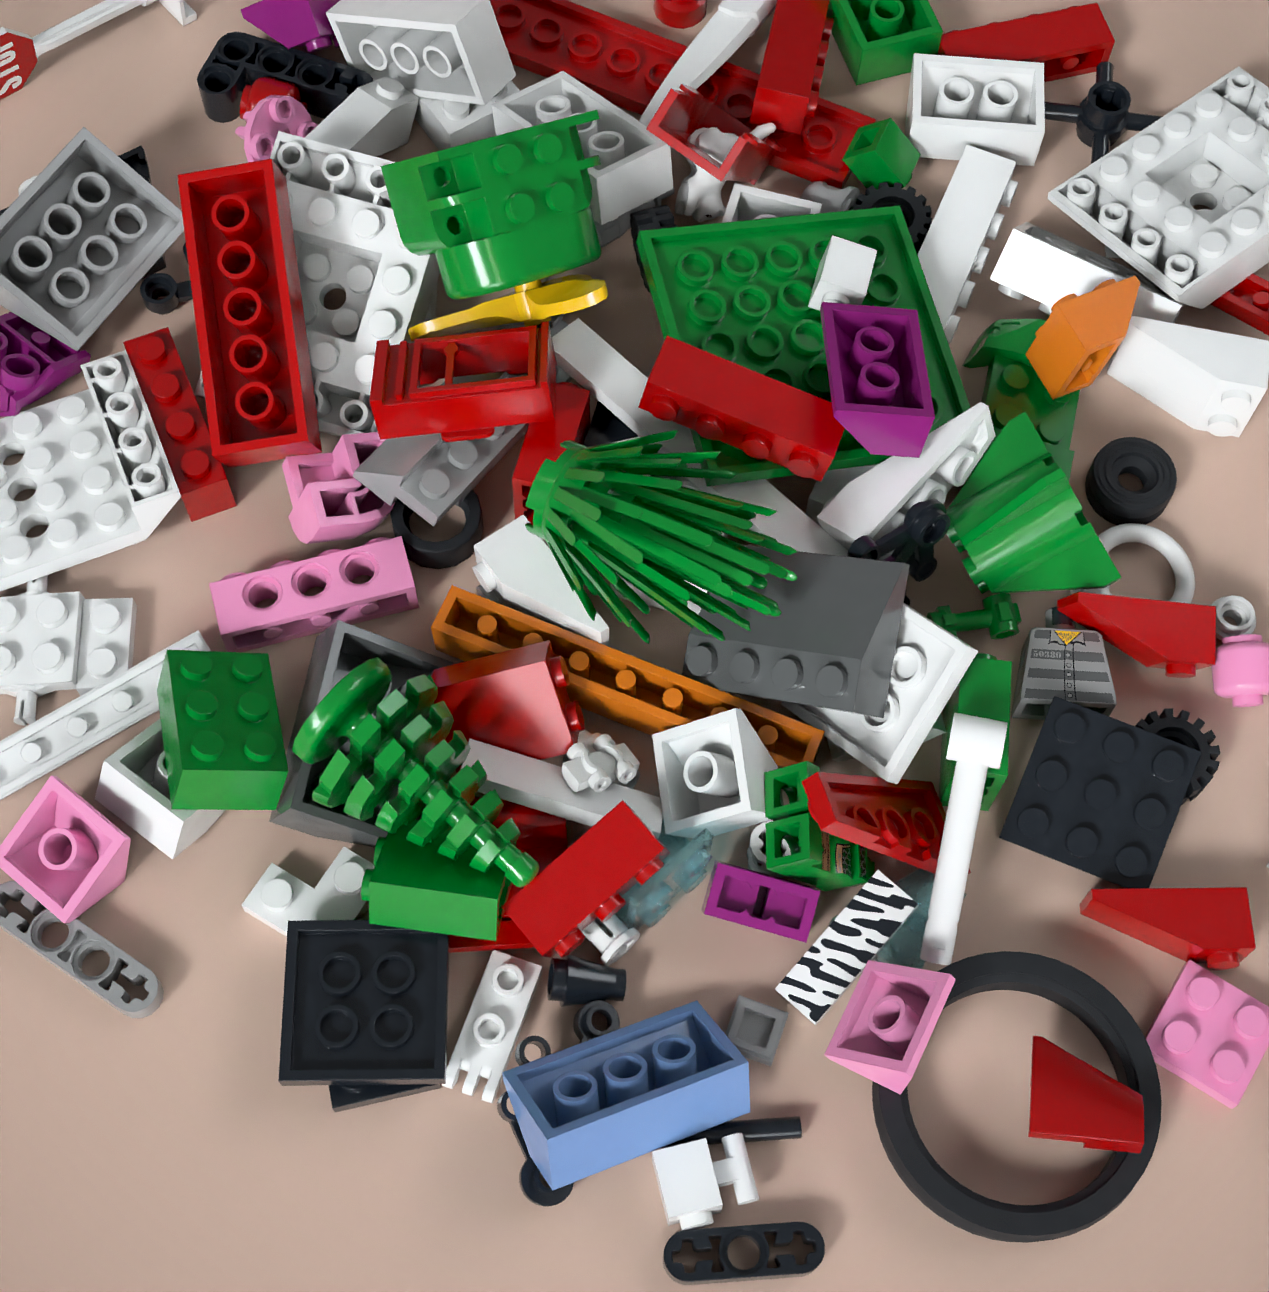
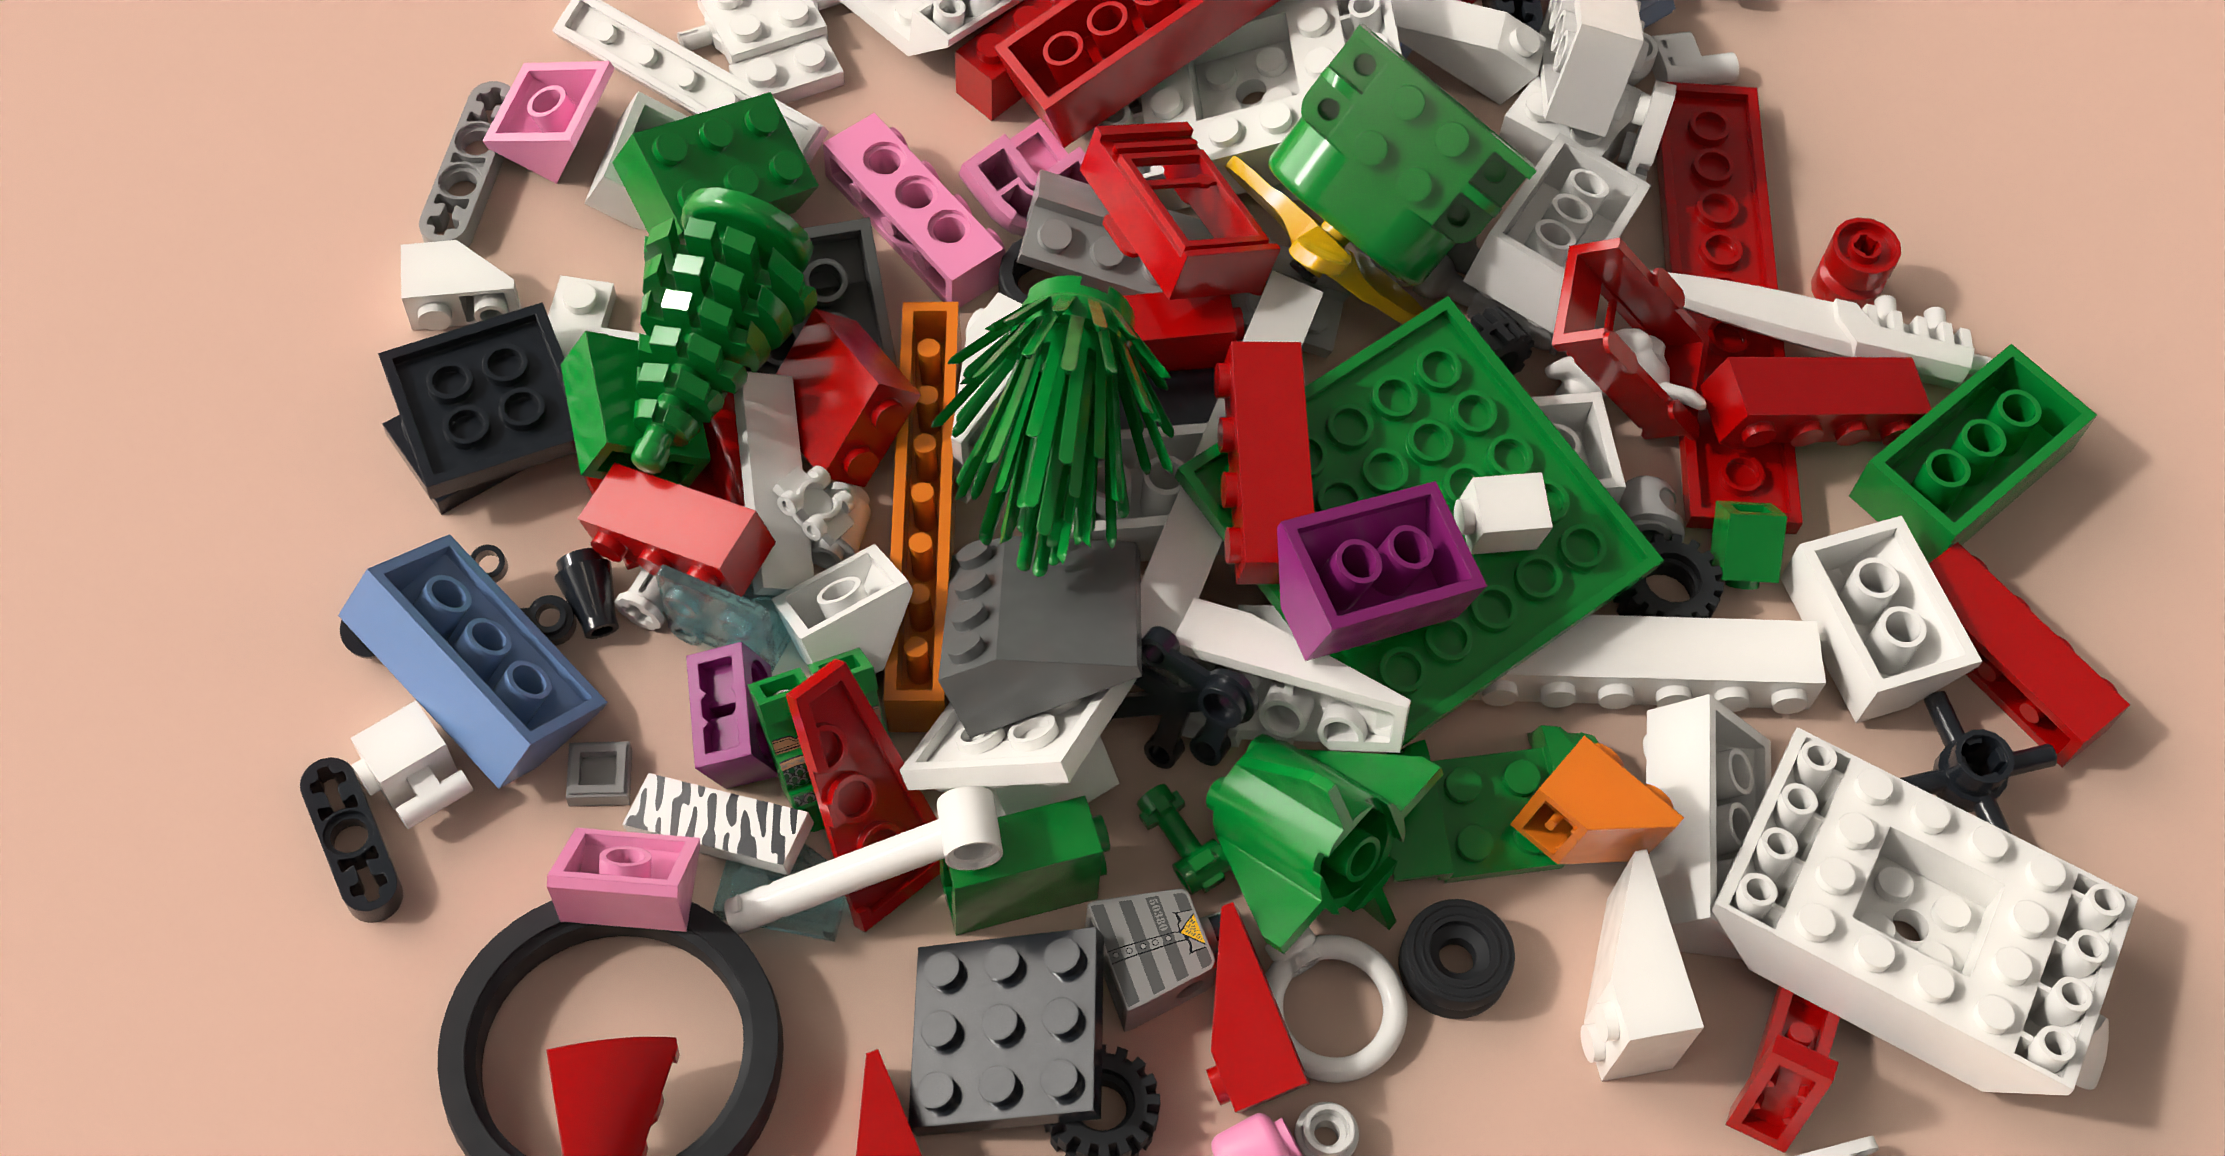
camera: 65 degrees right, 5 degrees down
(211, 1000) = (452, 286): none -> white slope
(493, 1023) = (519, 529): white hinge -> none
(525, 44) = (1651, 116): none -> white plate
(752, 1130) = (485, 803): black bar -> none

